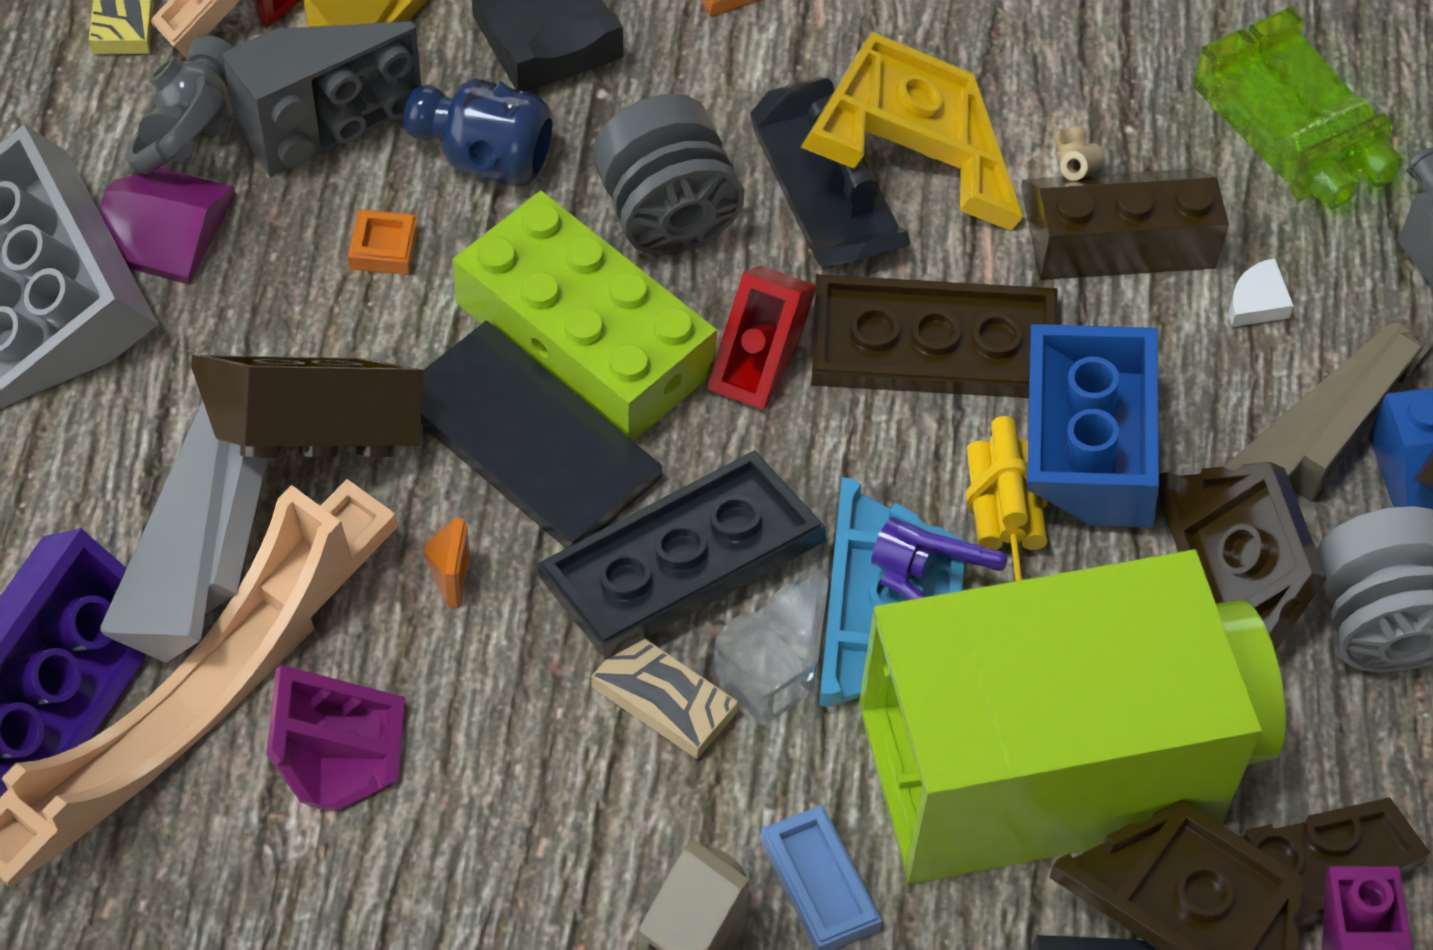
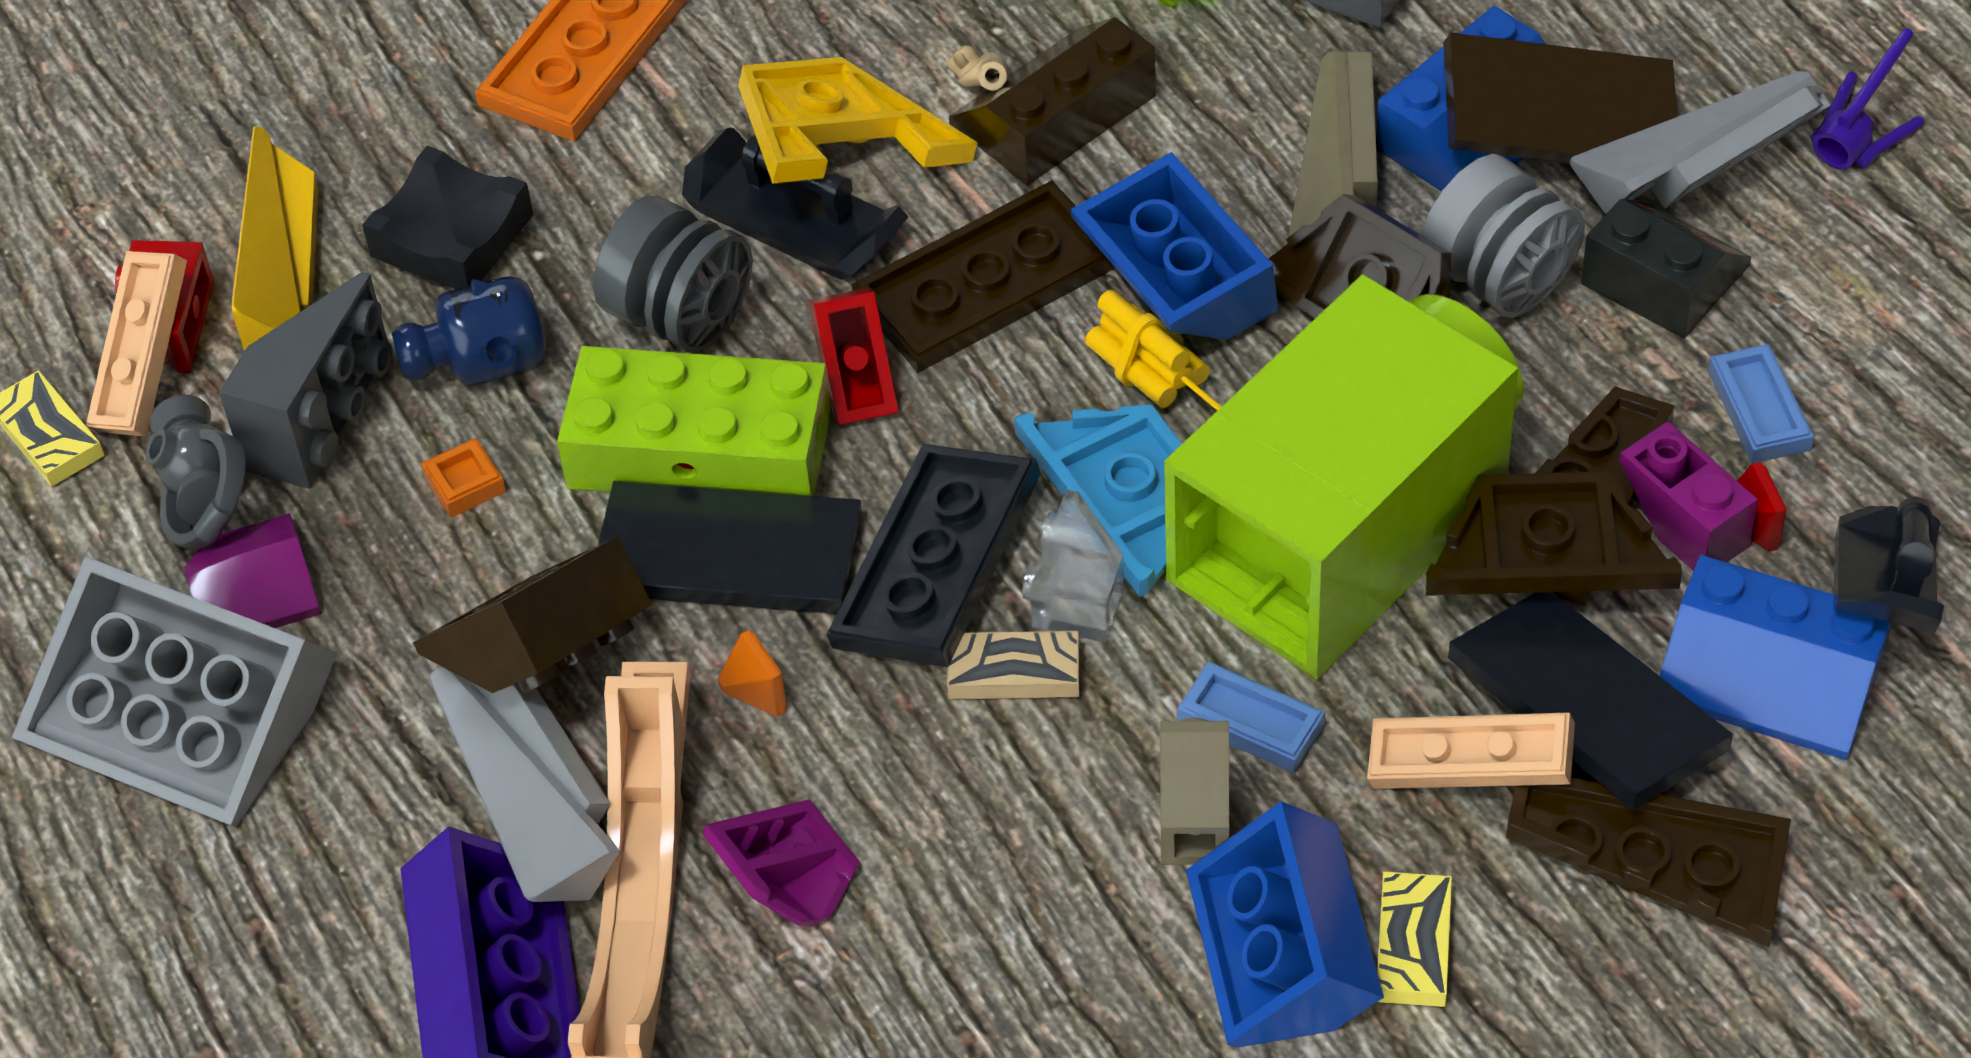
camera: 30 degrees left, 5 degrees down
(911, 551) = (1122, 431): dark purple plant -> none
(1260, 296) = (1211, 93): white tile -> none

